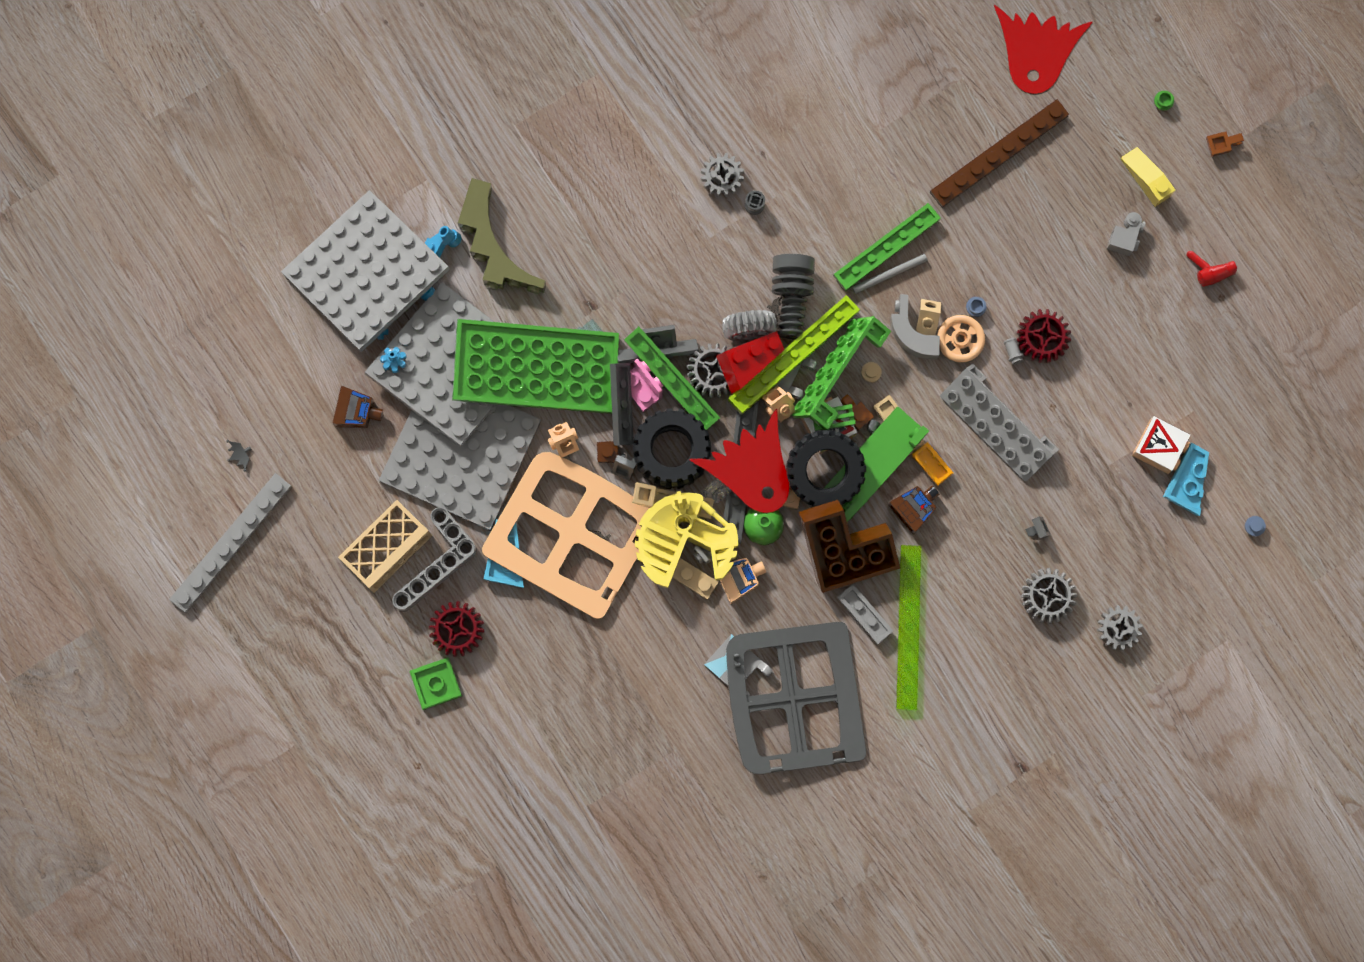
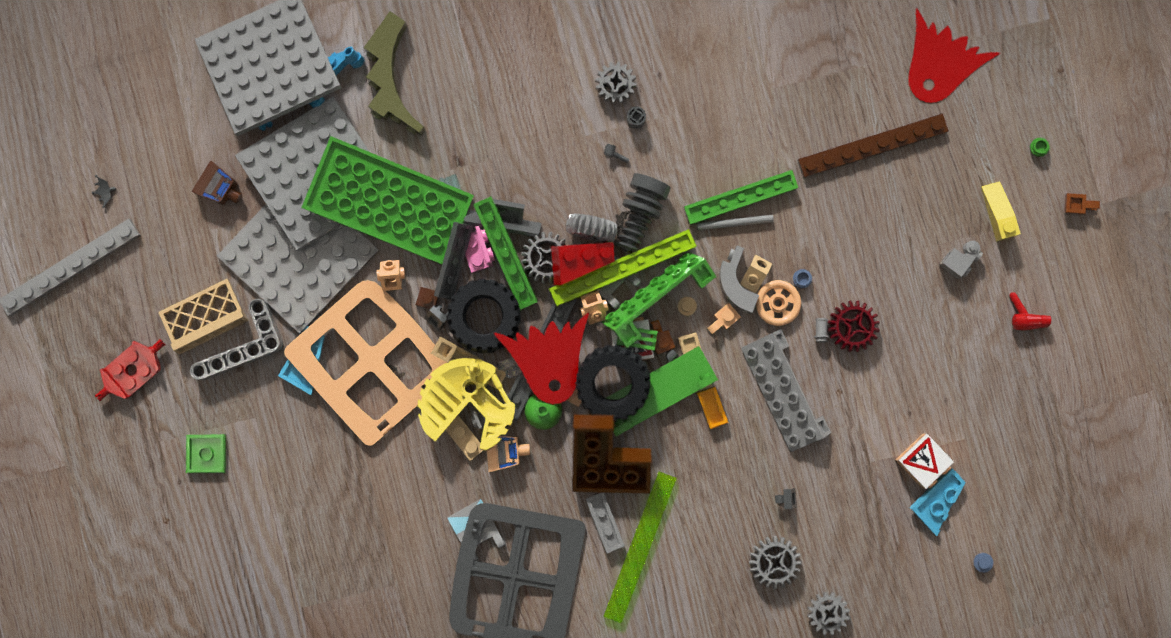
camera: 25 degrees right, 5 degrees up
(333, 607) = (116, 376): none -> plate
(393, 359) = (263, 152): dark azure plant -> none
(453, 638) = (226, 401): dark red gear -> none
(739, 245) = (610, 152): none -> dark grey hand
(913, 371) = (725, 318): none -> light nougat plate
(914, 507) = (683, 441): torso -> none

